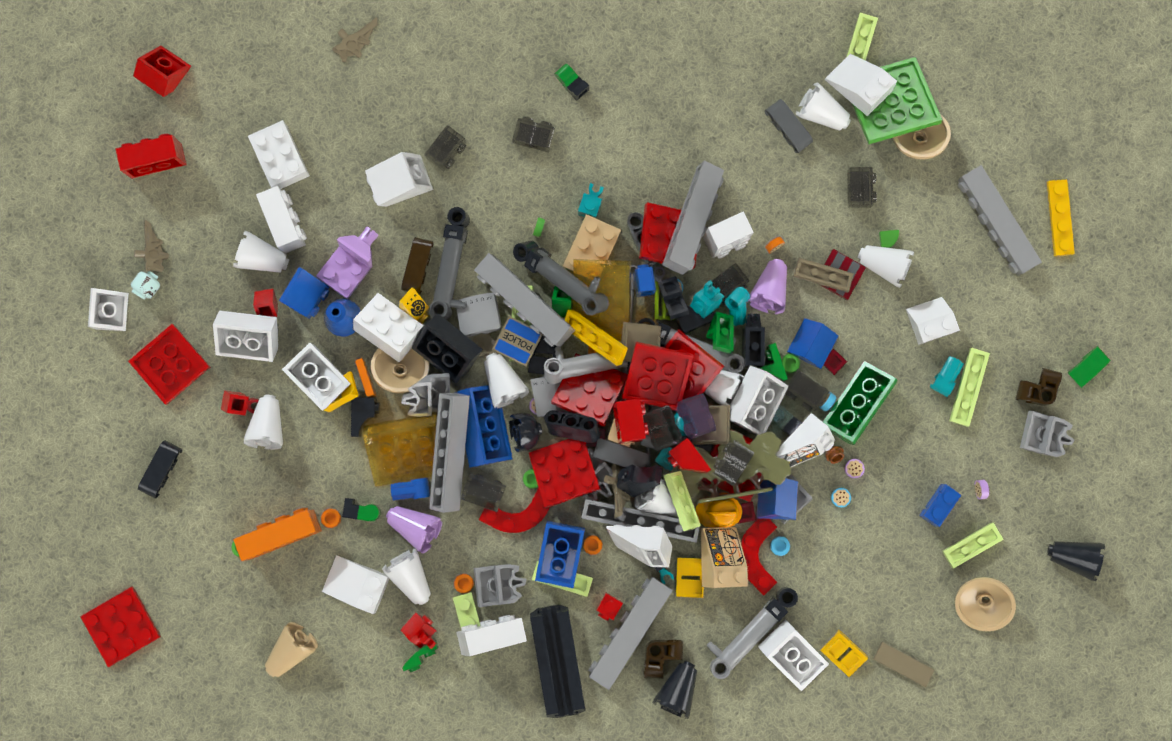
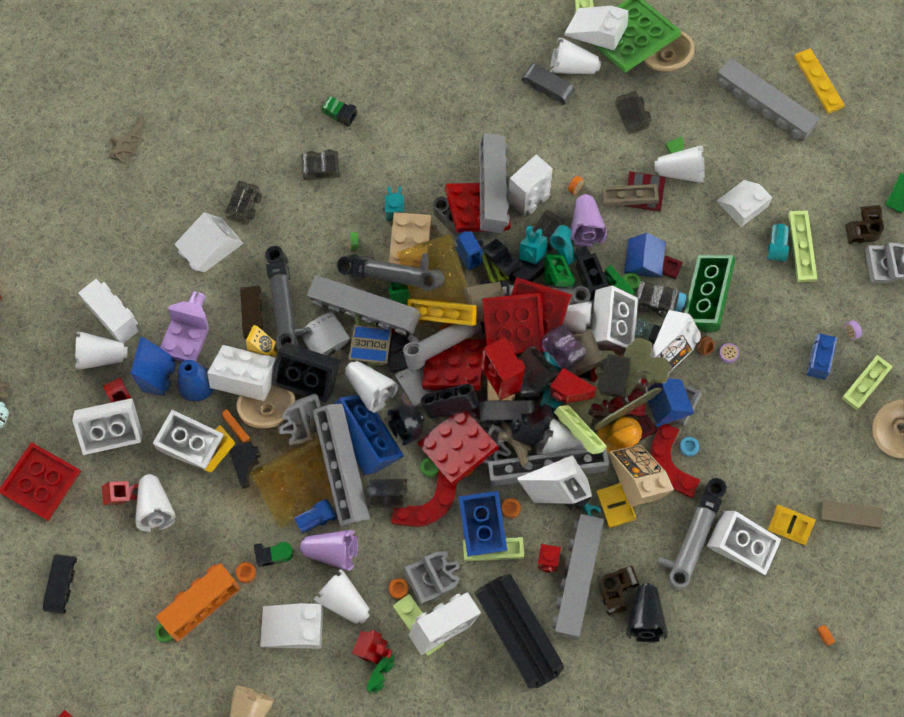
camera: 15 degrees left, 15 degrees down
(278, 155) = (88, 257): white brick -> none
(840, 497) = (727, 383): tile -> none

